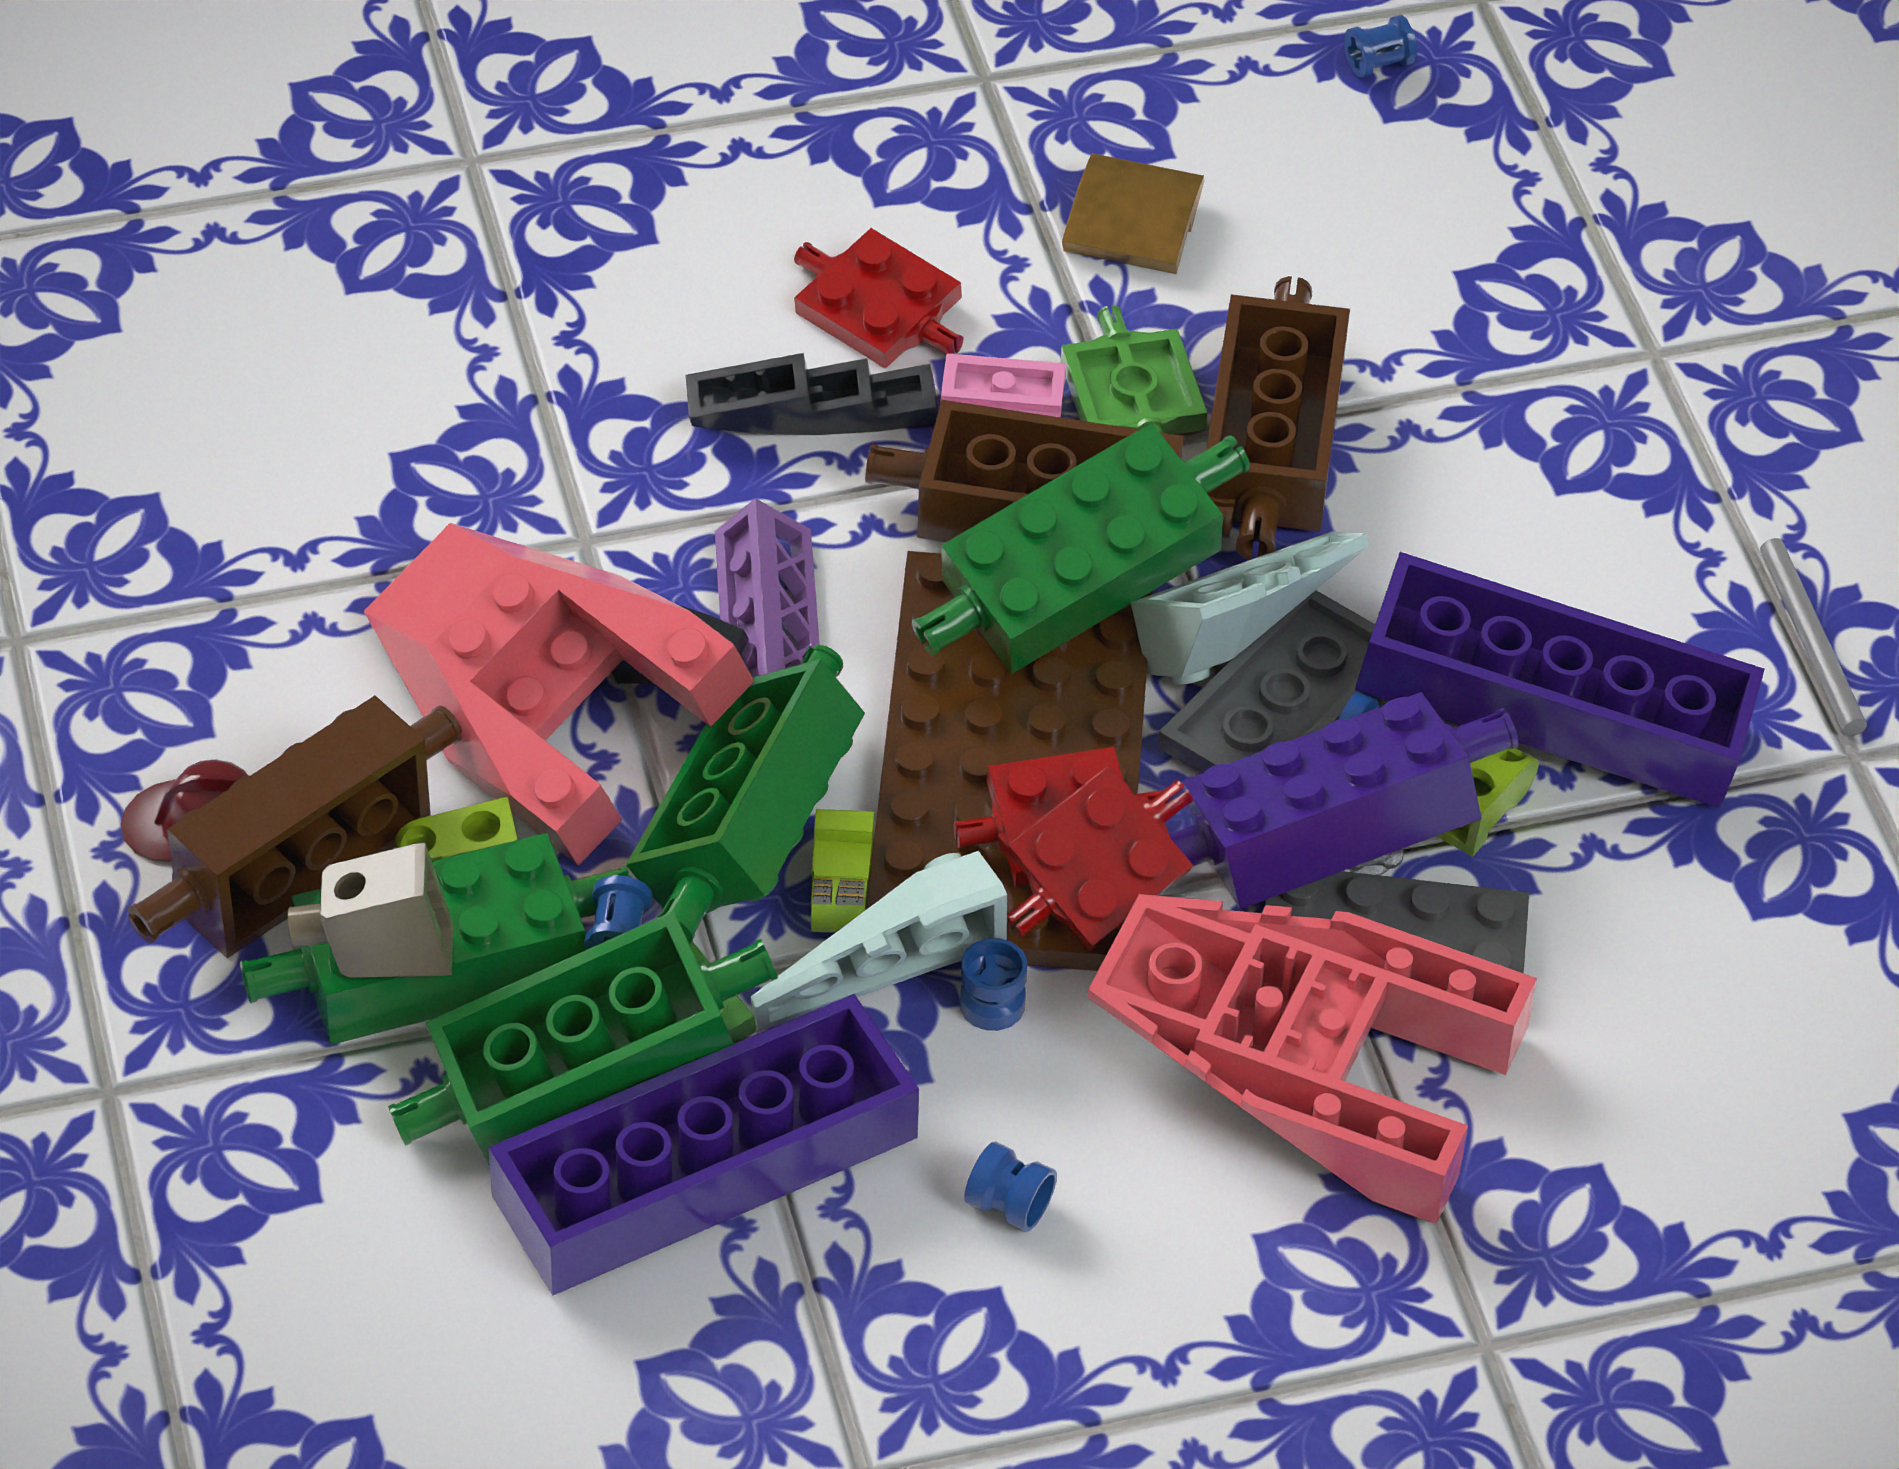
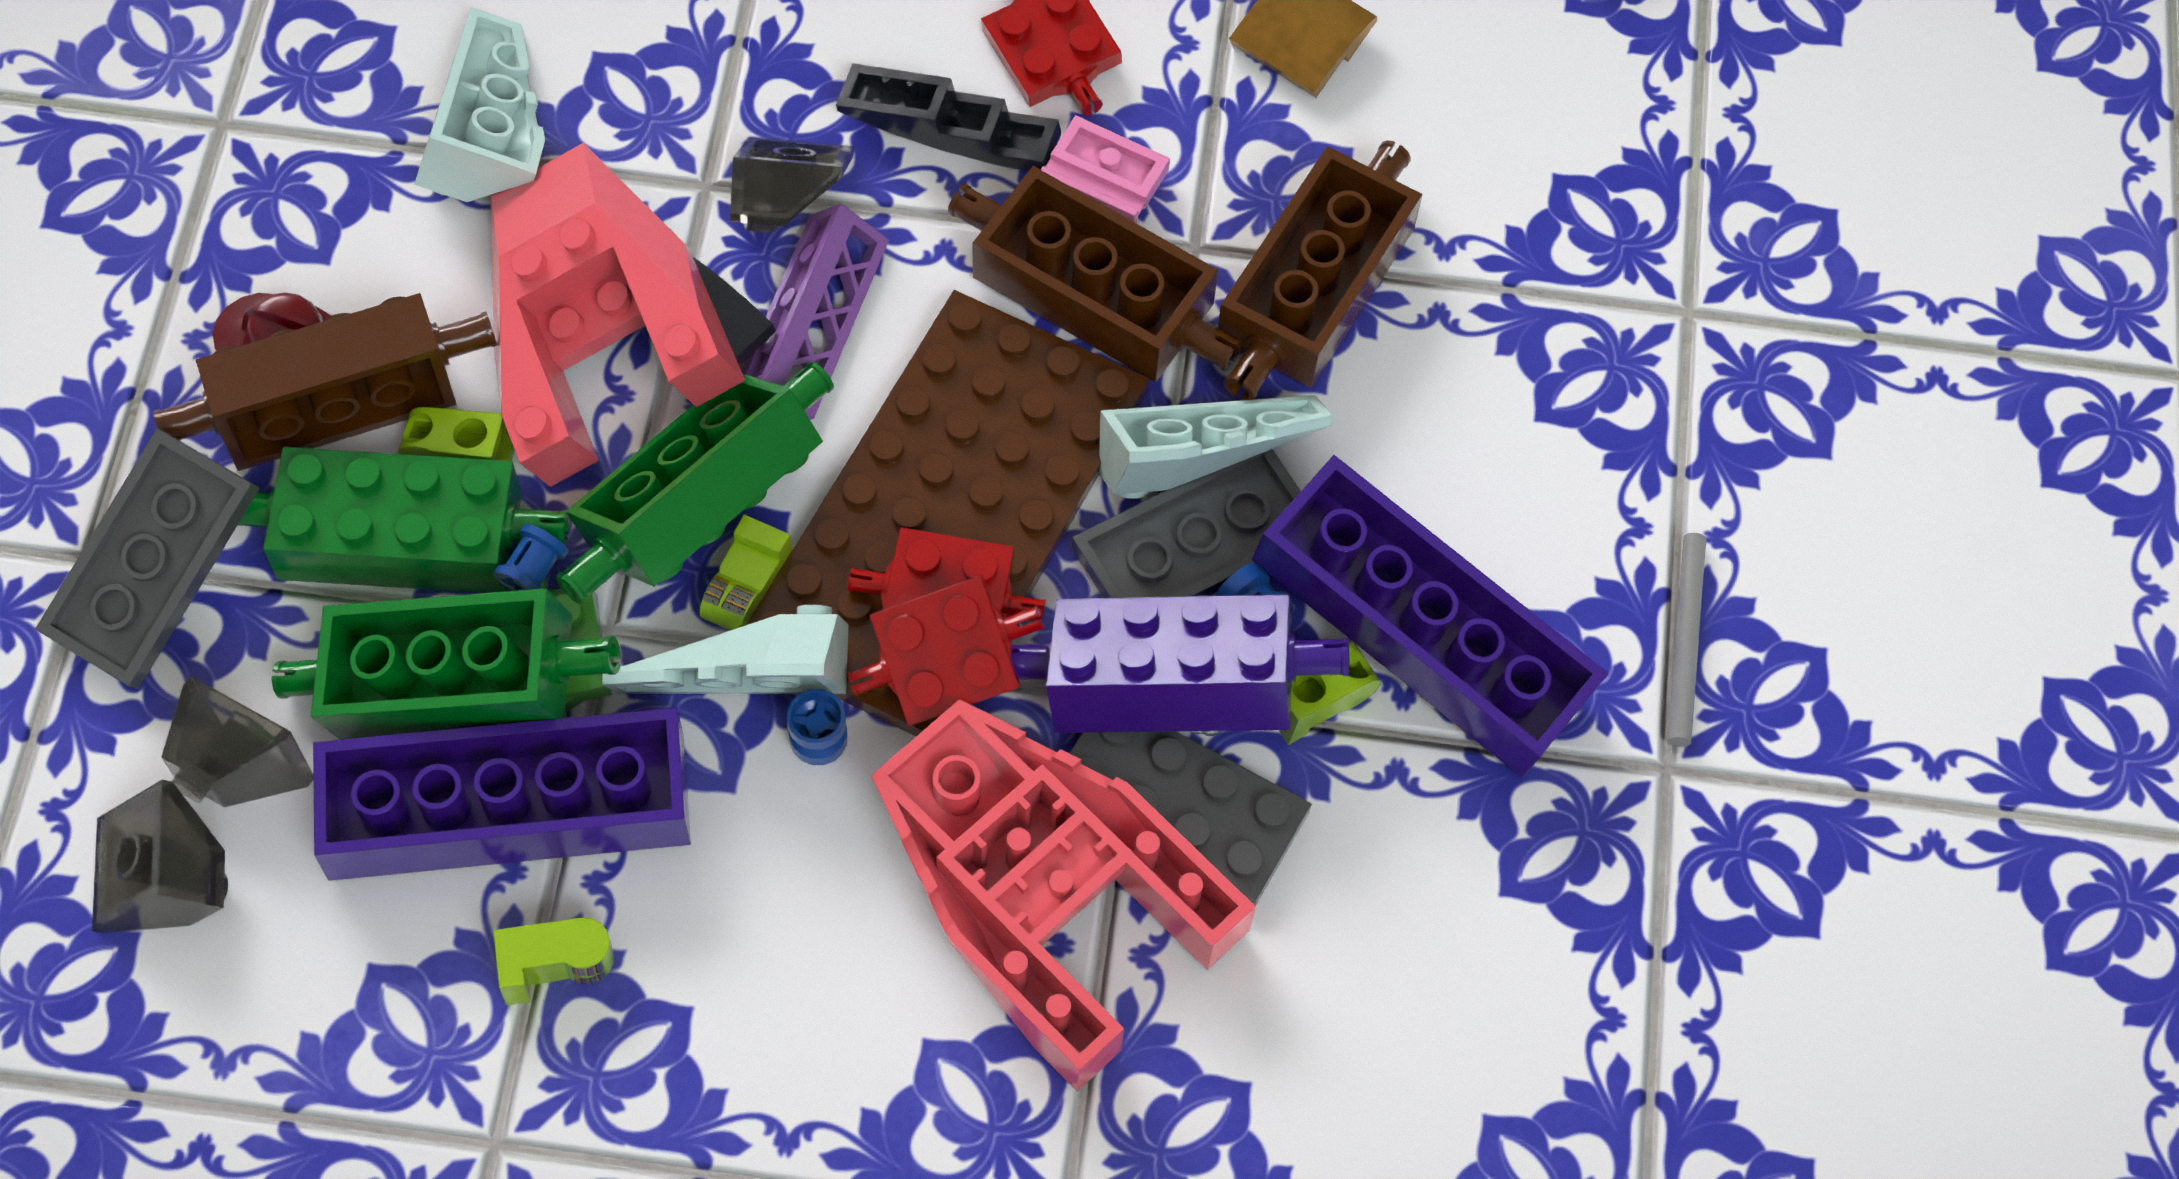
camera: 20 degrees right, 15 degrees up
(197, 1050) = (147, 559): none -> dark grey plate
(312, 547) = (486, 118): none -> light aqua wedge
(362, 1332) = (155, 864): none -> clear smoke slope
(380, 916) = (316, 506): dark tan torso -> none
(395, 1191) = (229, 750): none -> clear smoke slope
(674, 505) = (781, 178): none -> clear smoke slope
(831, 1278) = (551, 953): none -> lime leg
(1010, 1186) = (735, 924): blue wheel -> none
(1081, 547) = (1071, 351): green brick -> none
(1134, 378) = (1219, 195): bright green plate -> none

